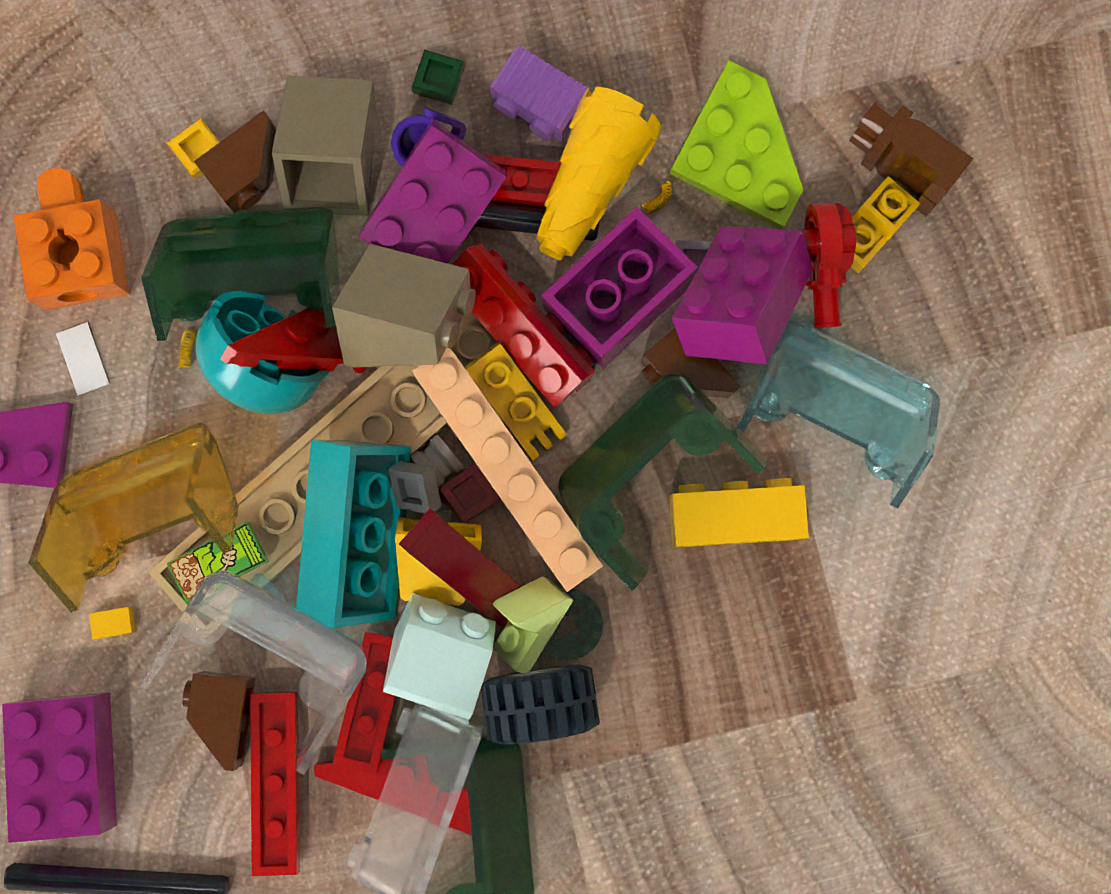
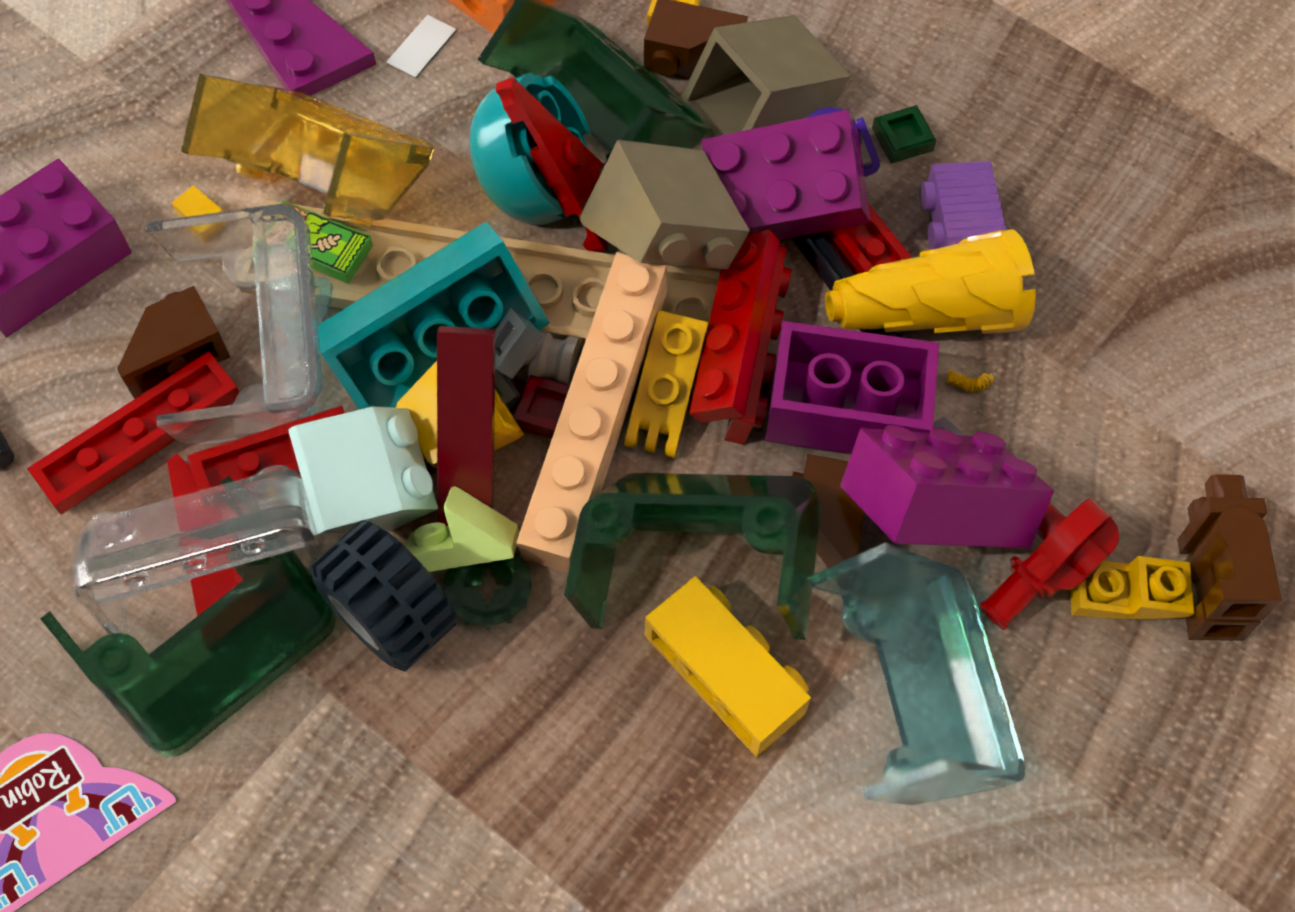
camera: 55 degrees right, 20 degrees down
(742, 150) = (1083, 416): lime plate -> none

